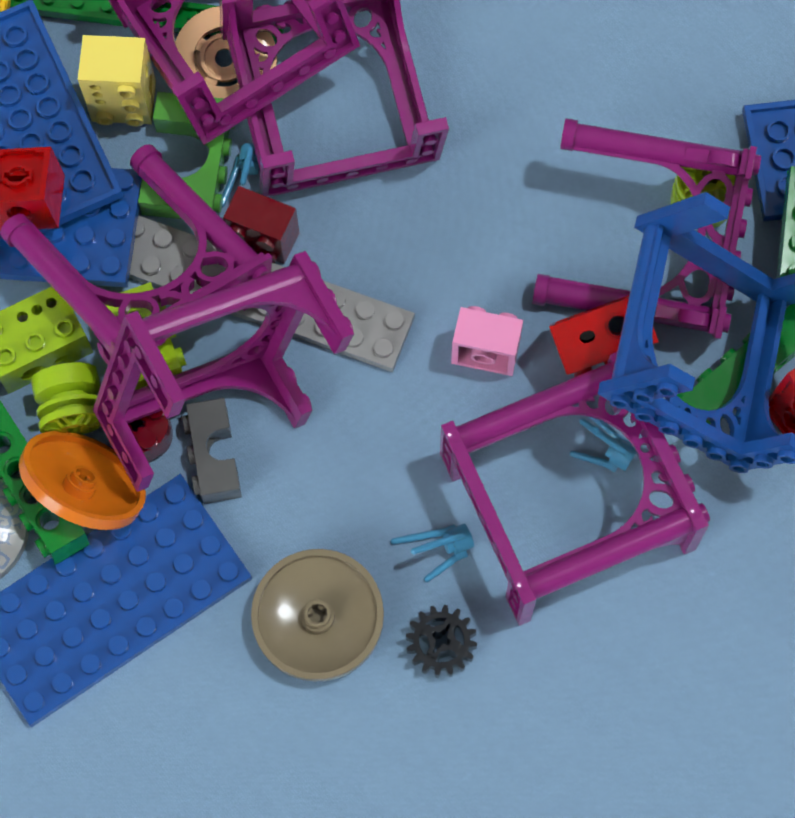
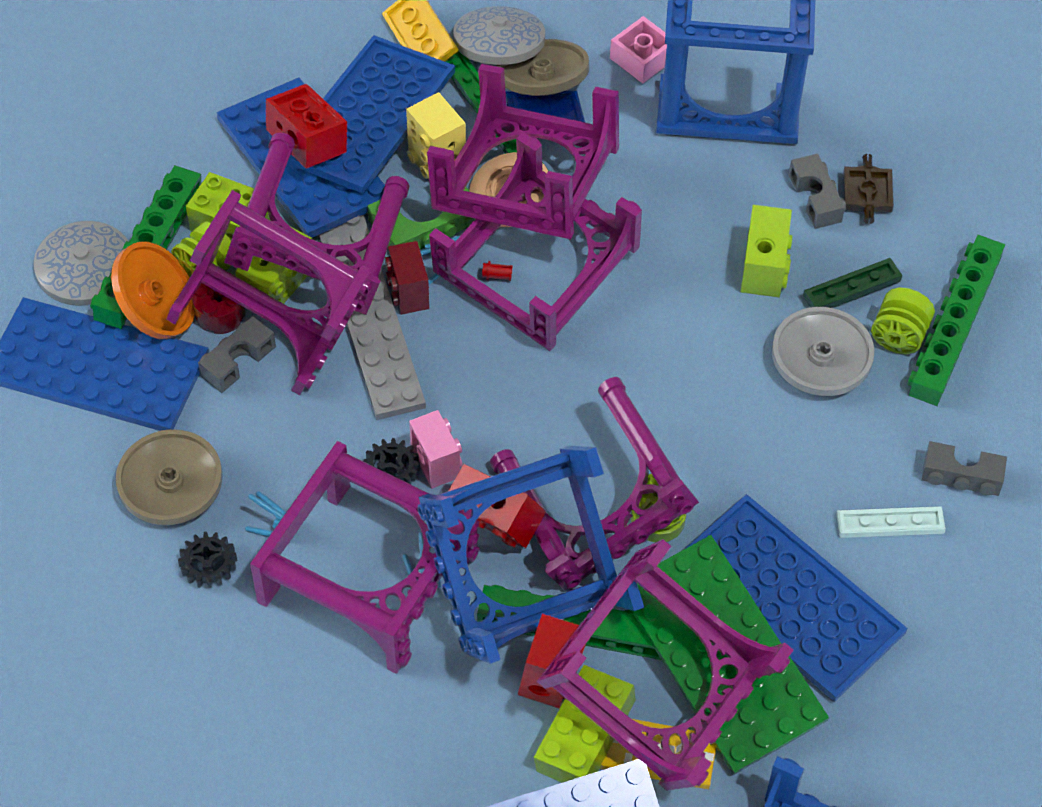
camera: 50 degrees right, 15 degrees down
(305, 145) = (497, 271): none -> red pin
(452, 393) = (393, 459): none -> black gear

